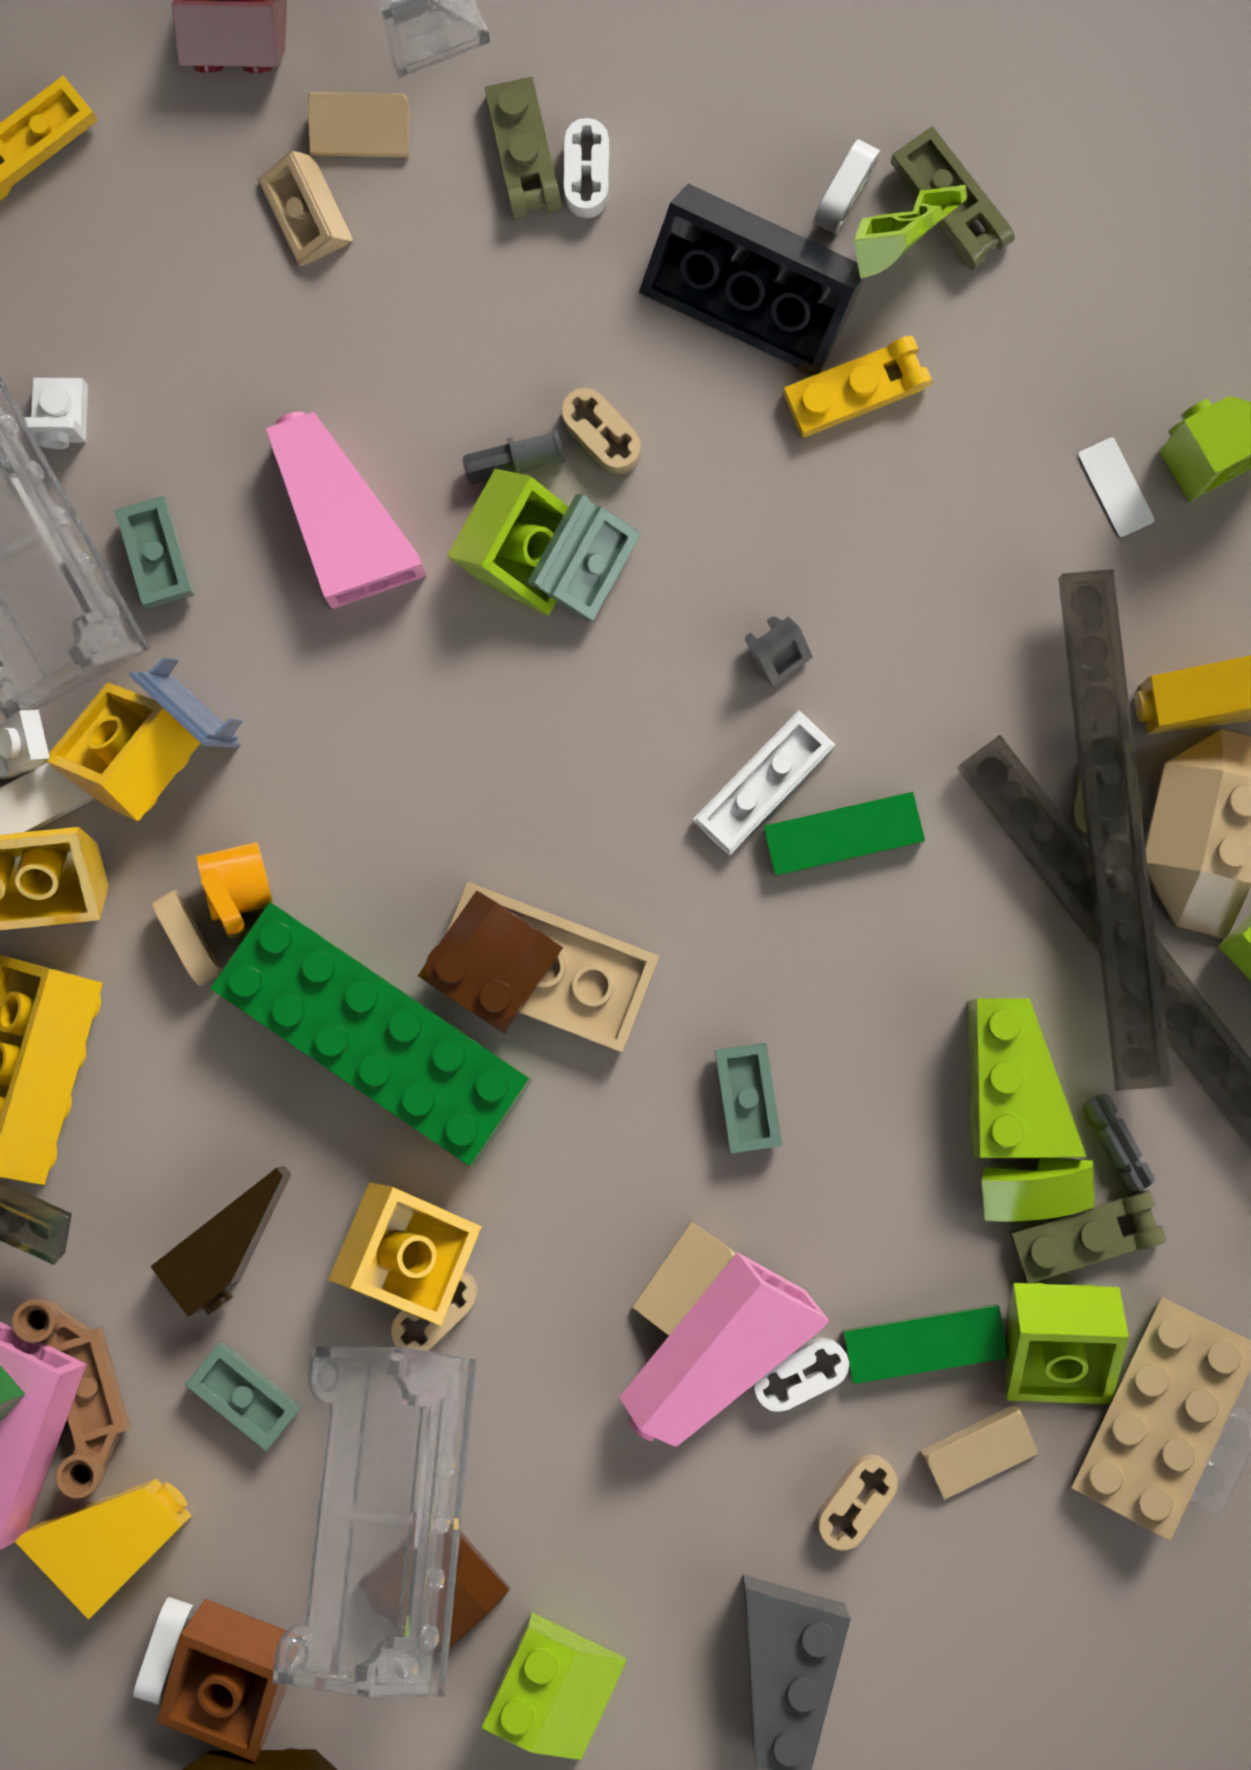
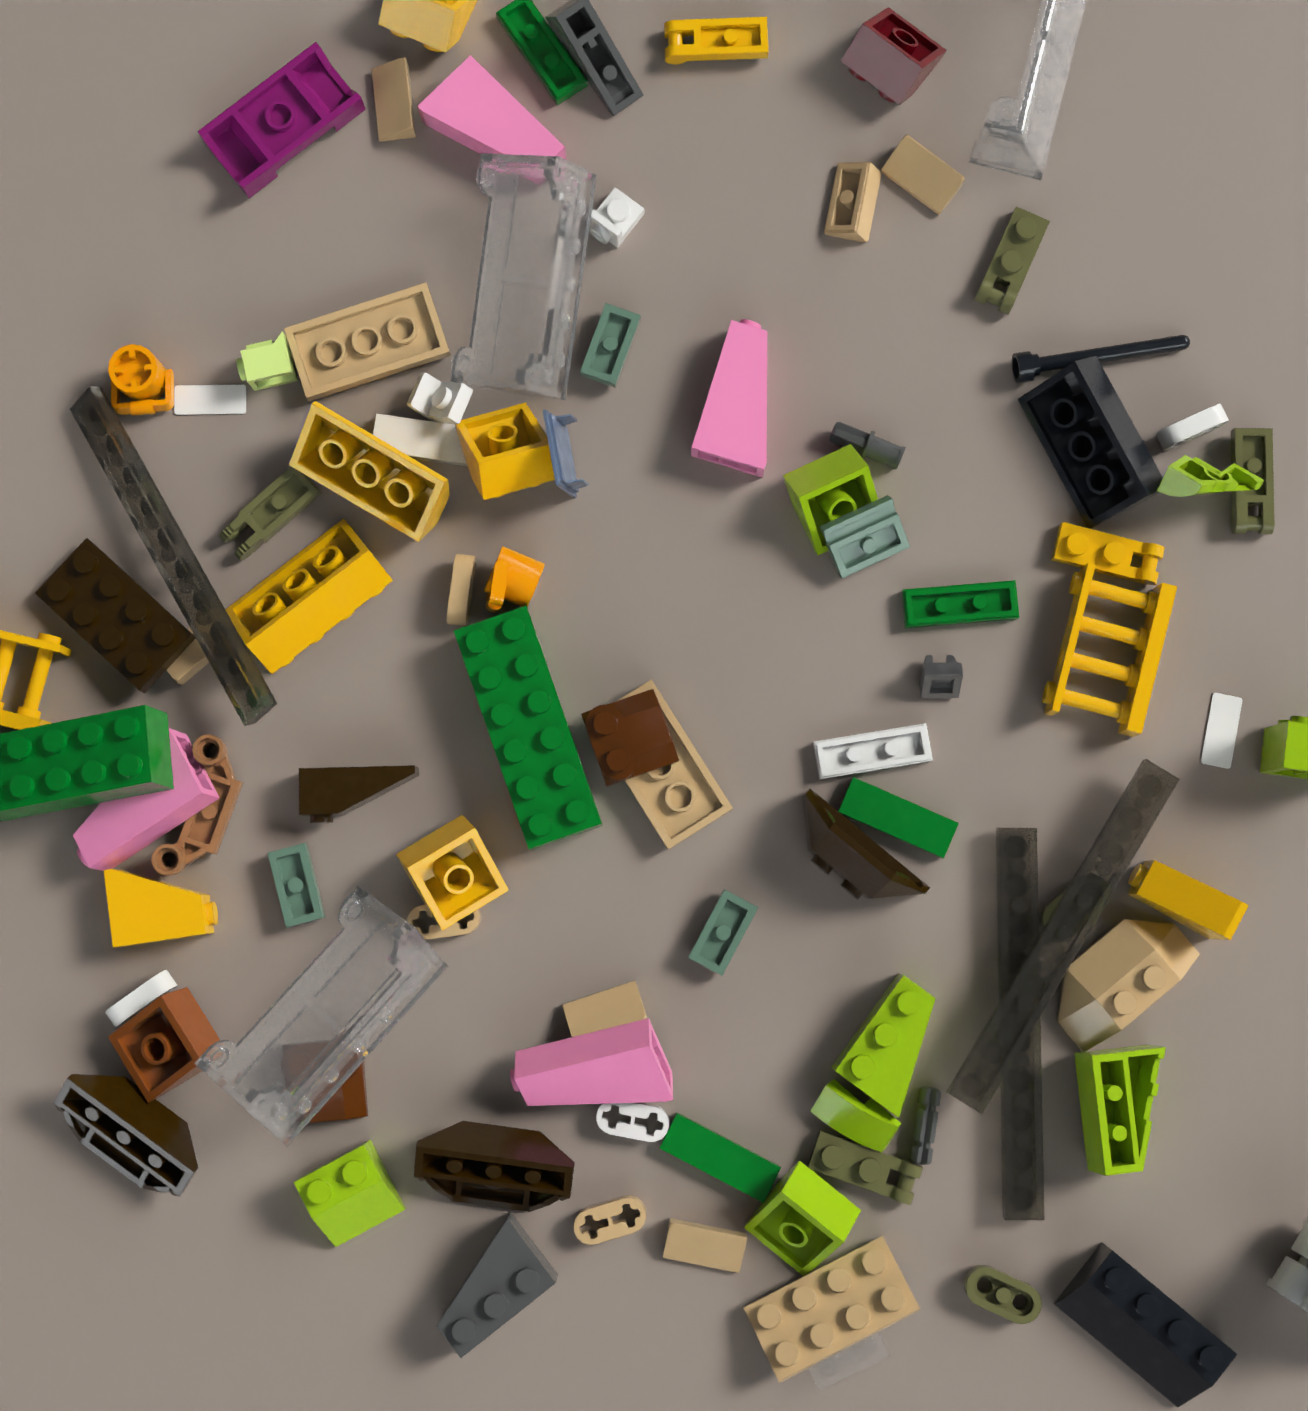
camera: 30 degrees right, 0 degrees up
(596, 168) = (1048, 305): white beam -> none
(609, 423) = (941, 467): tan beam -> none
(624, 247) = (1027, 365): none -> black piece
(688, 1540) = (494, 1166): none -> dark brown wedge
(740, 556) = (960, 604): none -> green tile
(826, 908) = (854, 855): none -> dark brown wedge
(967, 448) = (1146, 640): none -> yellow fence

